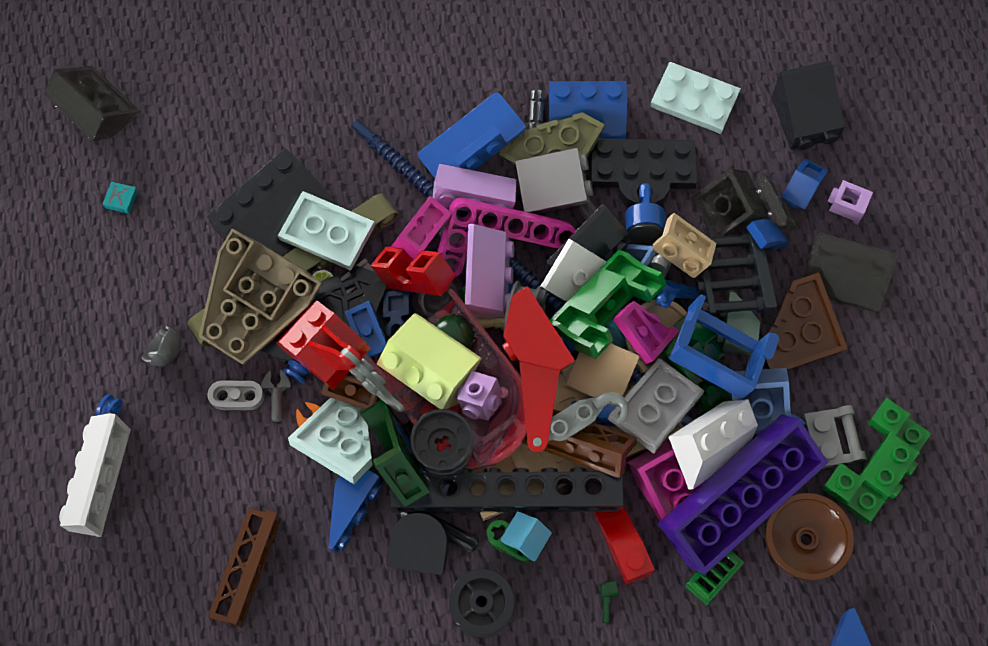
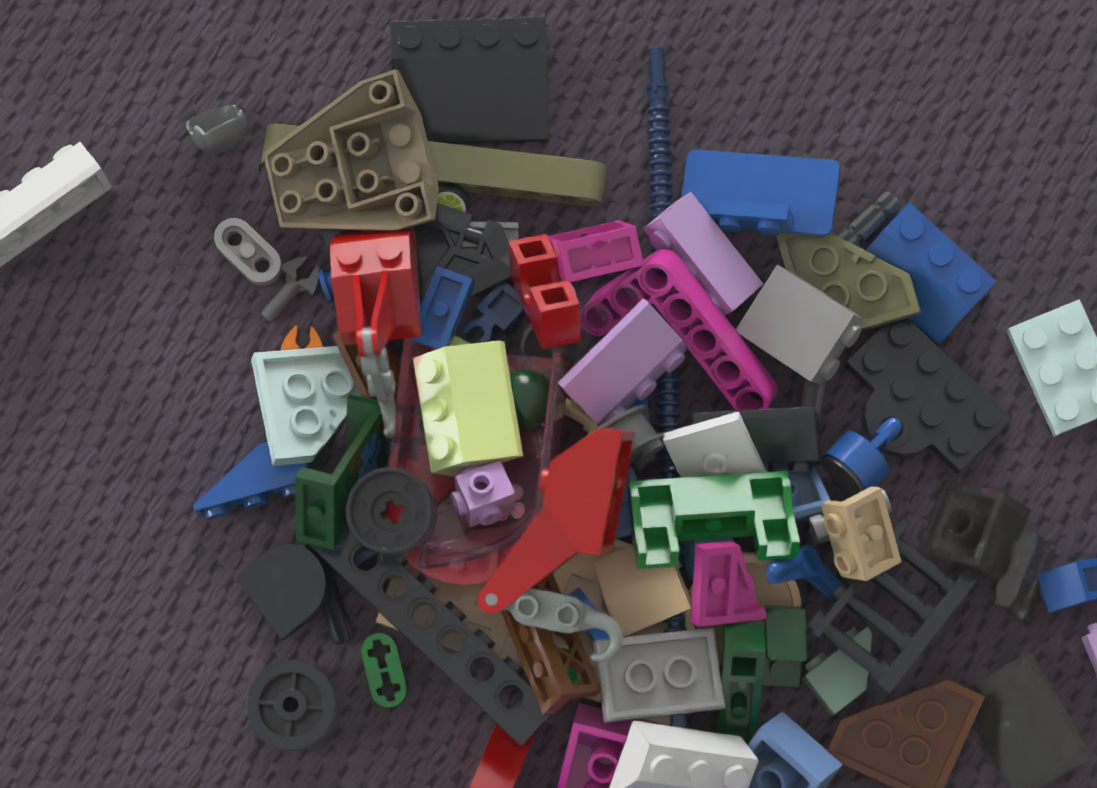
camera: 40 degrees right, 10 degrees up
(109, 405) = (109, 145): blue bush -> none
(251, 568) = (134, 437): reddish brown fence -> none
(326, 230) = (500, 156): light aqua plate -> none
(526, 535) = (400, 681): medium azure panel -> none
(711, 369) = (825, 726): blue piece -> none
(768, 234) = (975, 604): blue slope -> none

